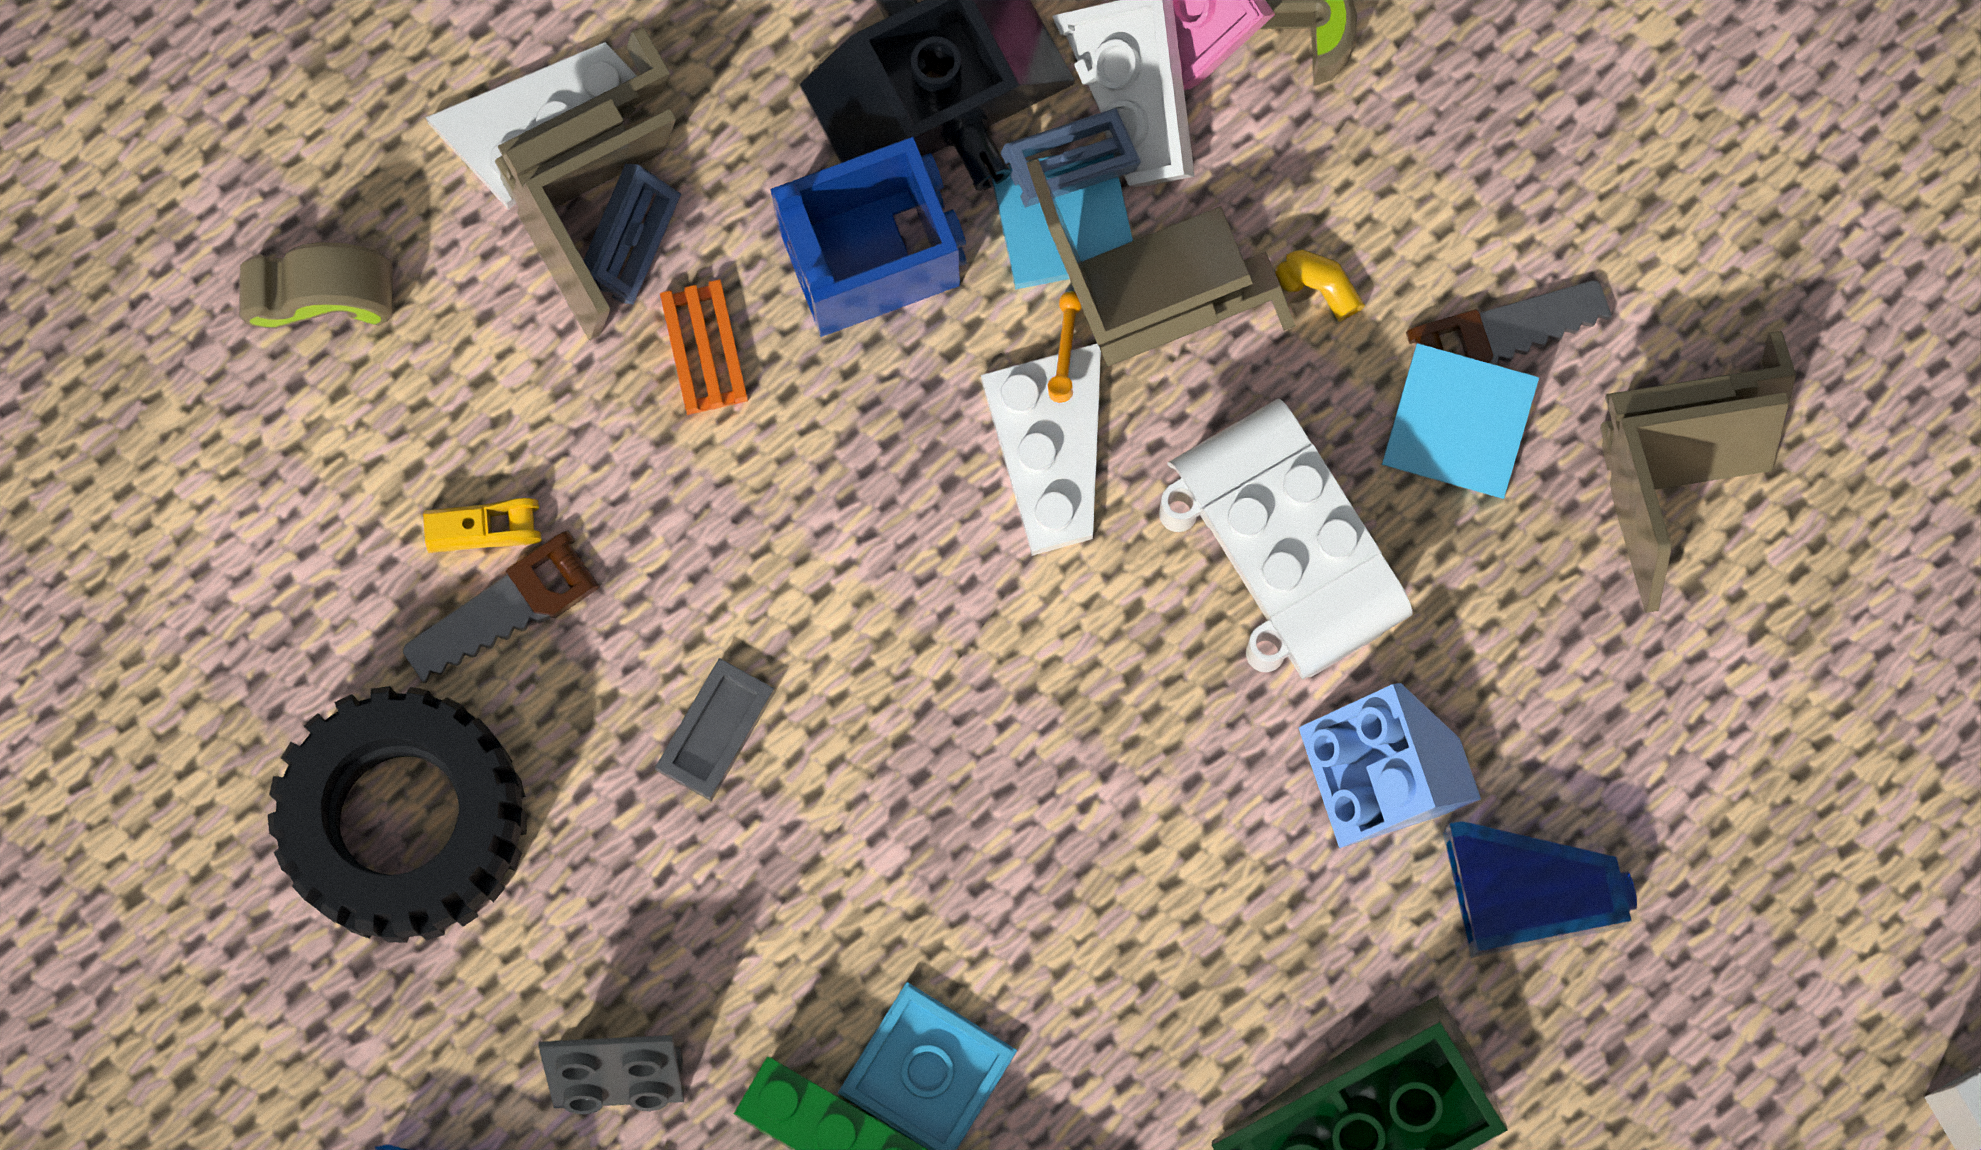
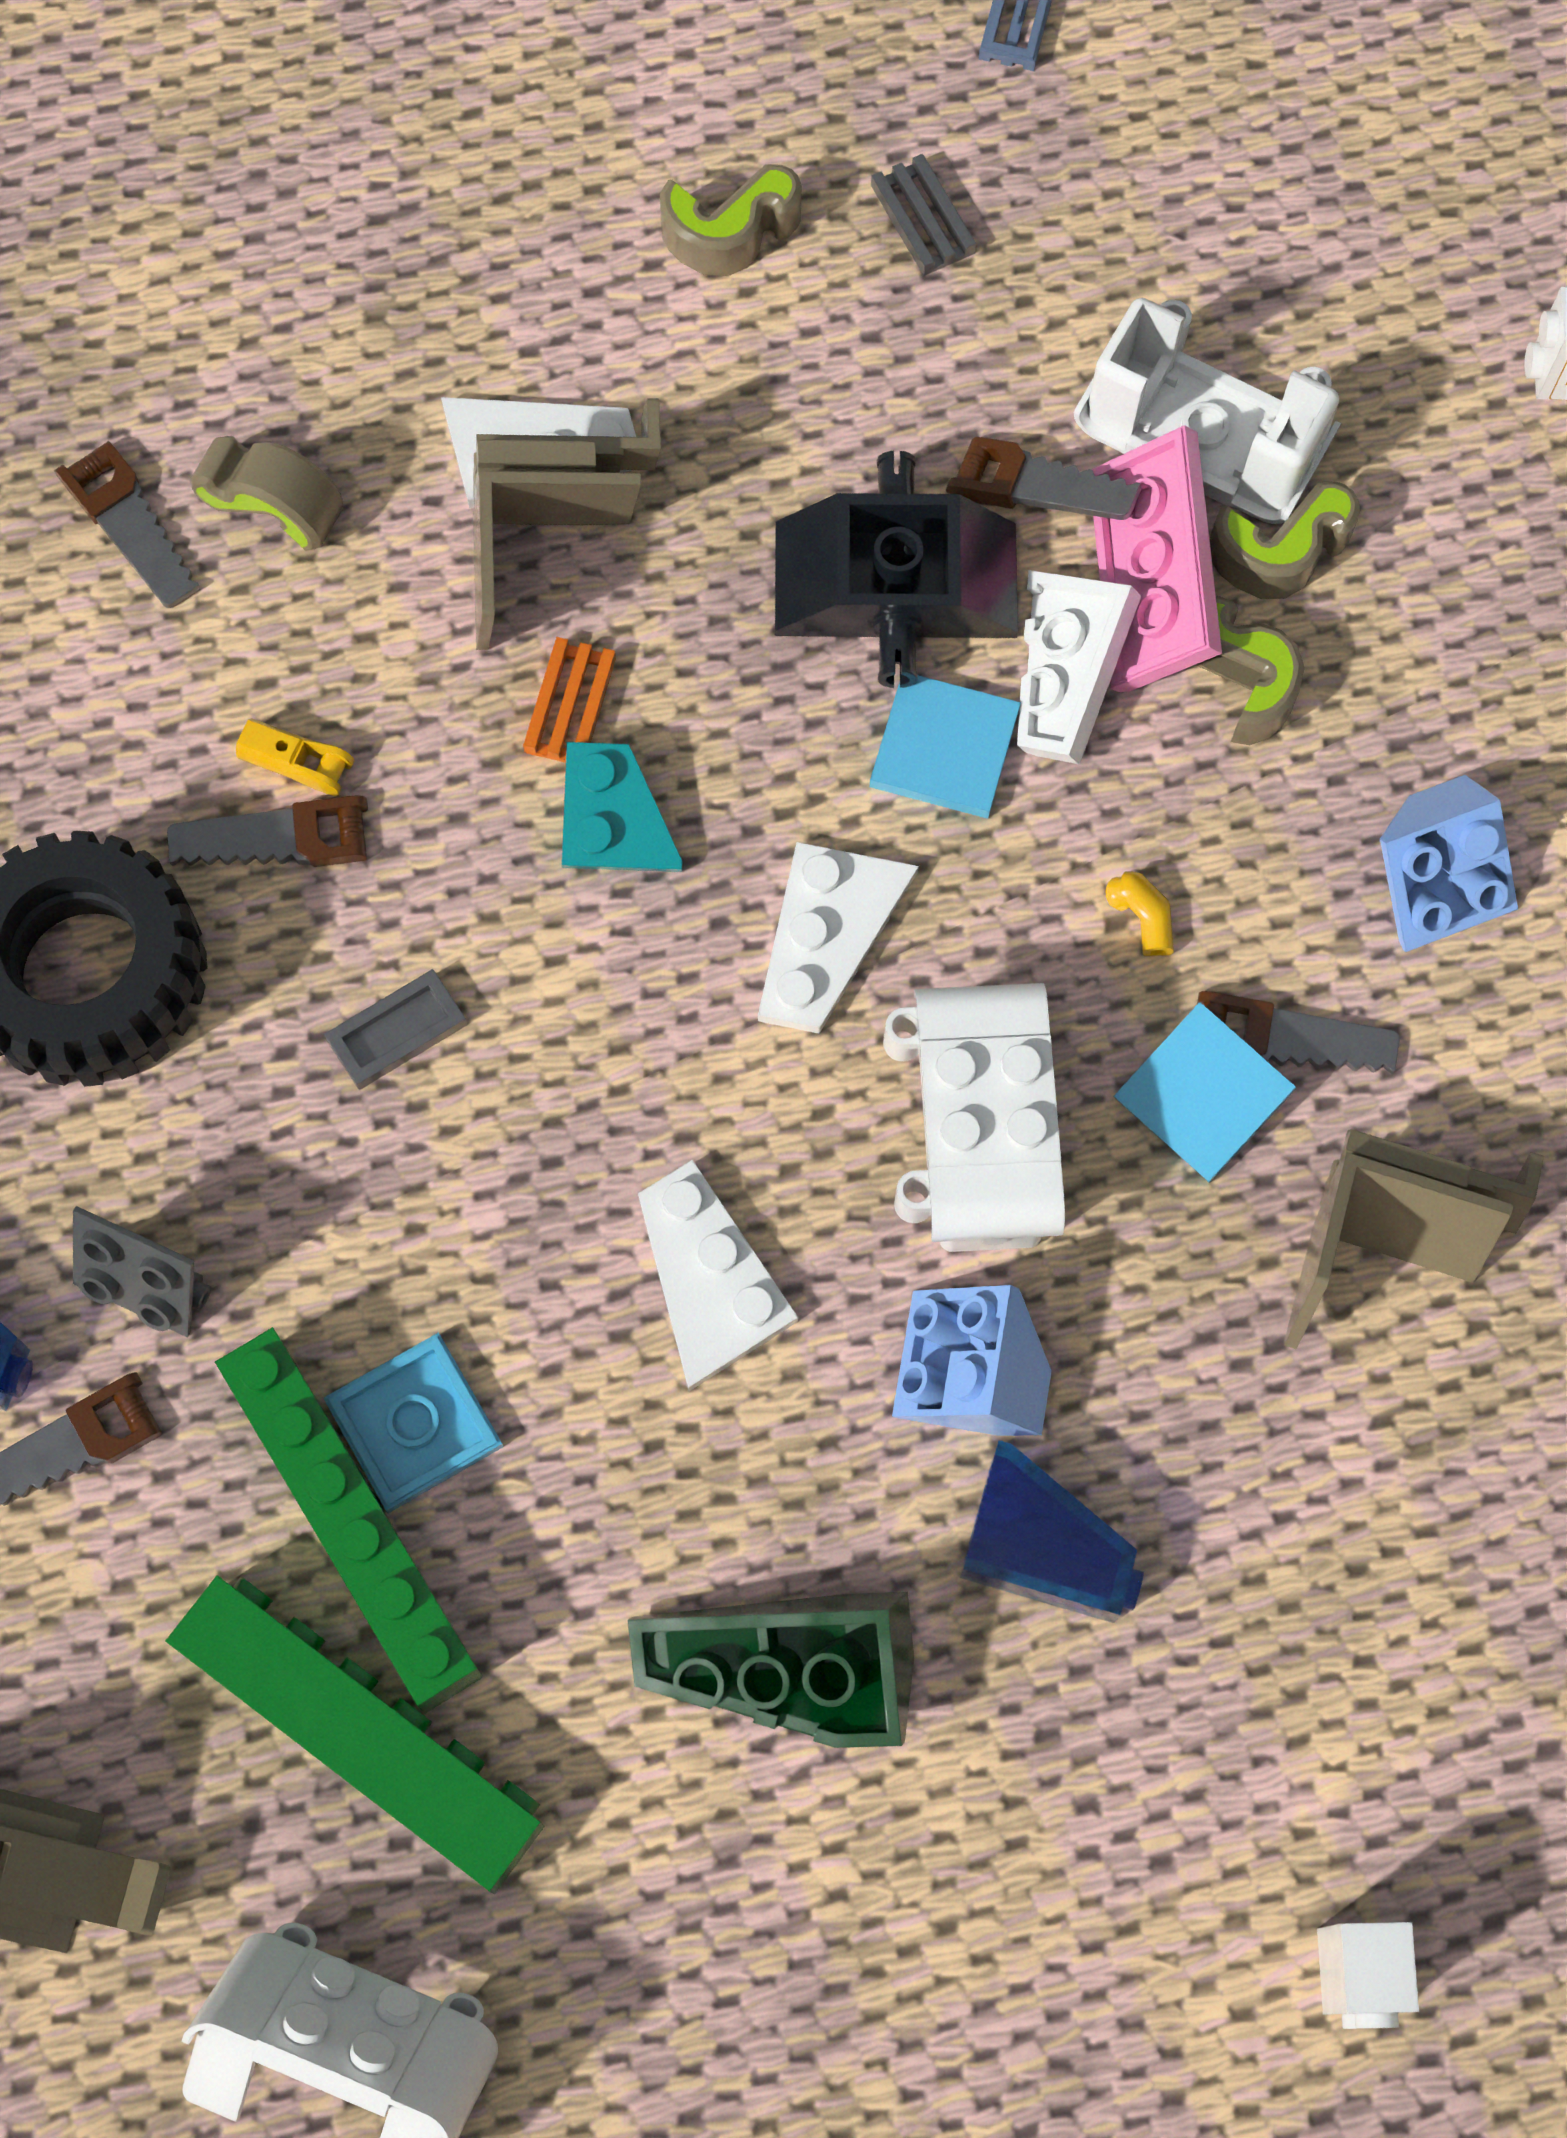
camera: 25 degrees right, 5 degrees down
(200, 382) = (129, 522): none -> flat silver piece
(623, 228) = (545, 557): sand blue tile -> none
(802, 432) = (612, 813): none -> teal wing
(849, 245) = (742, 669): blue container -> none
(1060, 386) = (858, 883): light orange hinge -> none
(1066, 183) = (972, 713): sand blue tile -> none
(1115, 806) = (709, 1275): none -> white wing
(1162, 281) = (990, 836): dark tan piece -> none
(1563, 103) = (1447, 862): none -> light blue slope

